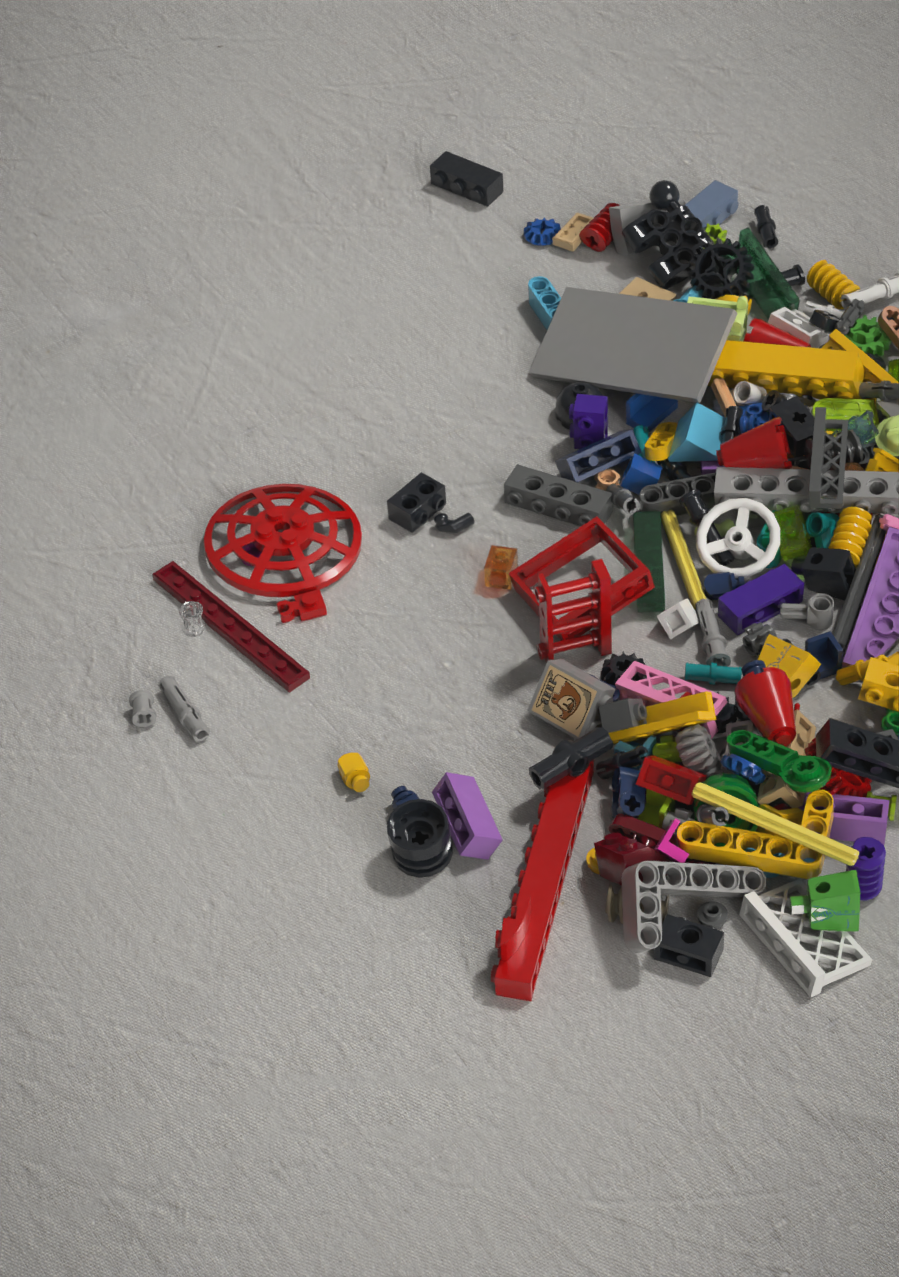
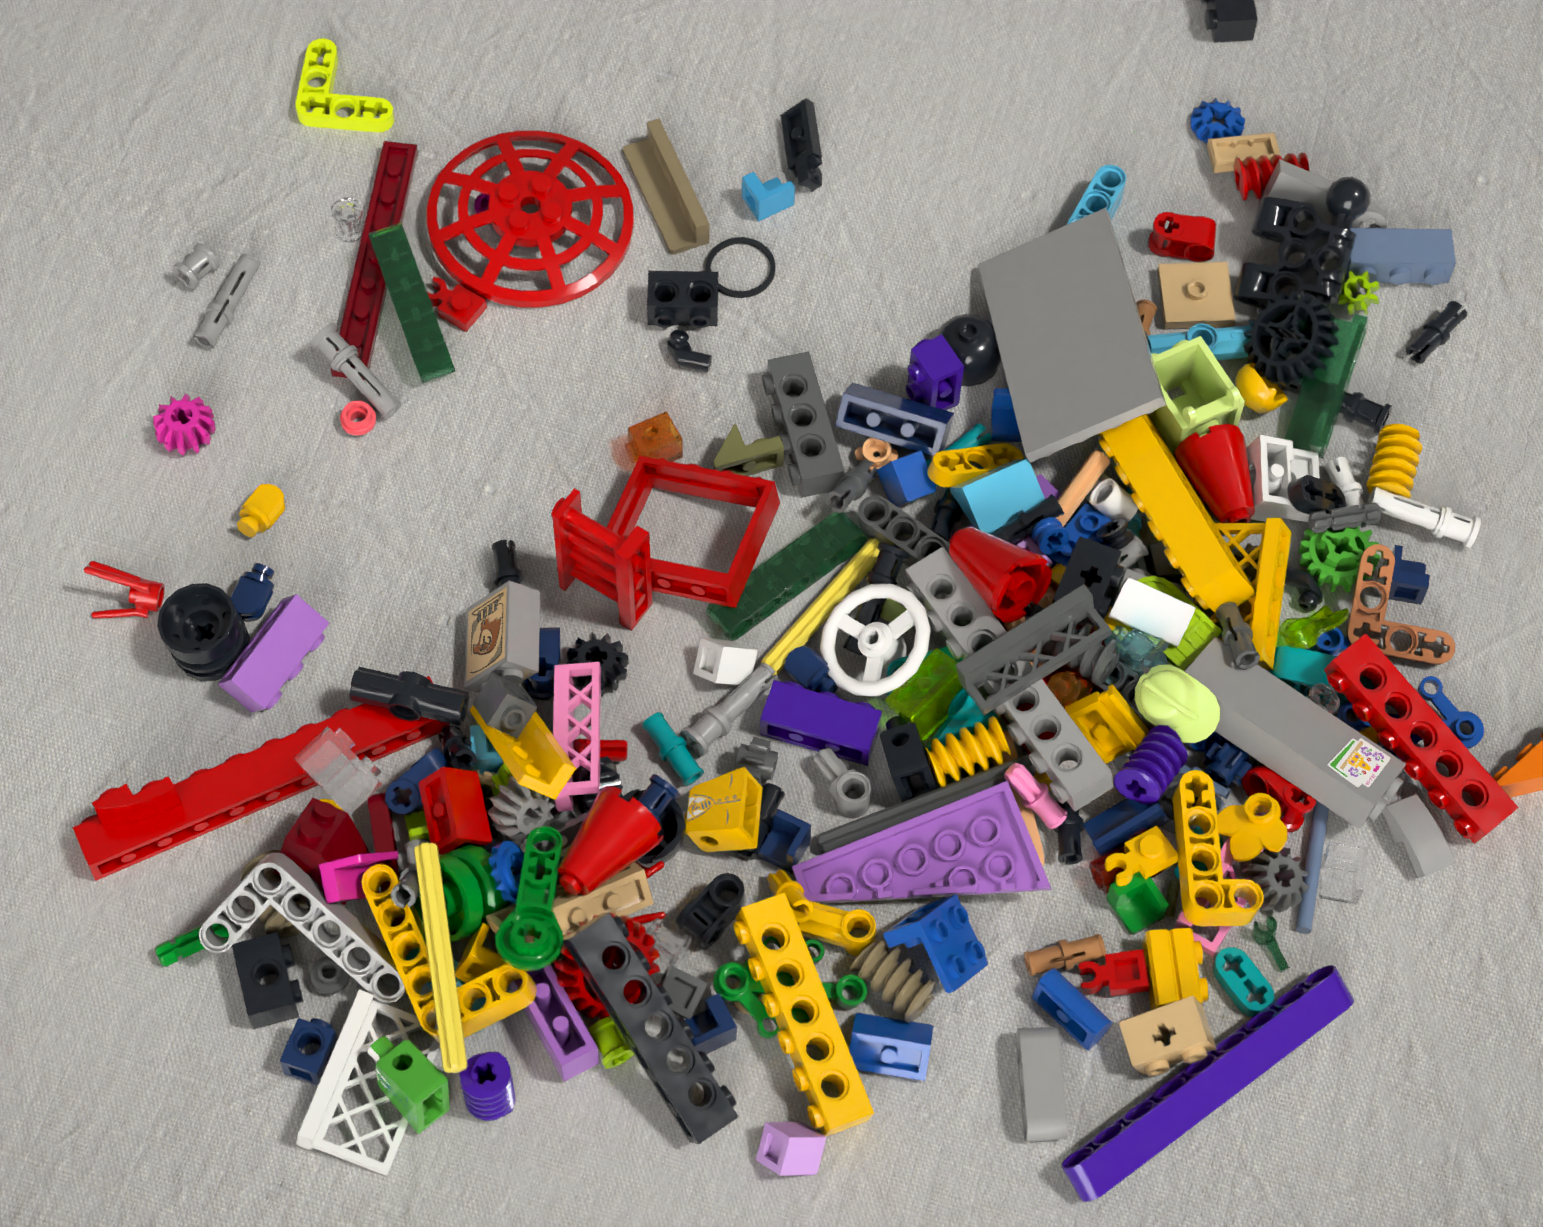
camera: 45 degrees right, 15 degrees up
(92, 592) = (322, 96): none -> neon yellow beam
(253, 775) = (184, 424): none -> dark pink gear
(287, 618) = (411, 302): none -> clear green beam
(295, 670) = (347, 356): none -> light grey pin
(333, 468) = (667, 190): none -> dark tan panel
(336, 692) = (355, 410): none -> coral plate
(353, 861) = (143, 593): none -> red plant
(368, 395) = (803, 144): none -> black hinge
(385, 433) = (767, 197): none -> dark azure panel
(416, 455) = (747, 241): none -> black piece
(520, 682) = (506, 563): none -> black pin
(548, 534) = (749, 459): none -> olive slope
(585, 819) = (339, 770): none -> clear brick
(606, 279) = (1186, 237): none -> red piece
(623, 972) = (185, 944): none -> green axle
(759, 960) = (303, 1066): none -> dark blue brick
(837, 704) = (707, 914): none -> black piece
(841, 407) = (1151, 611): none -> white slope

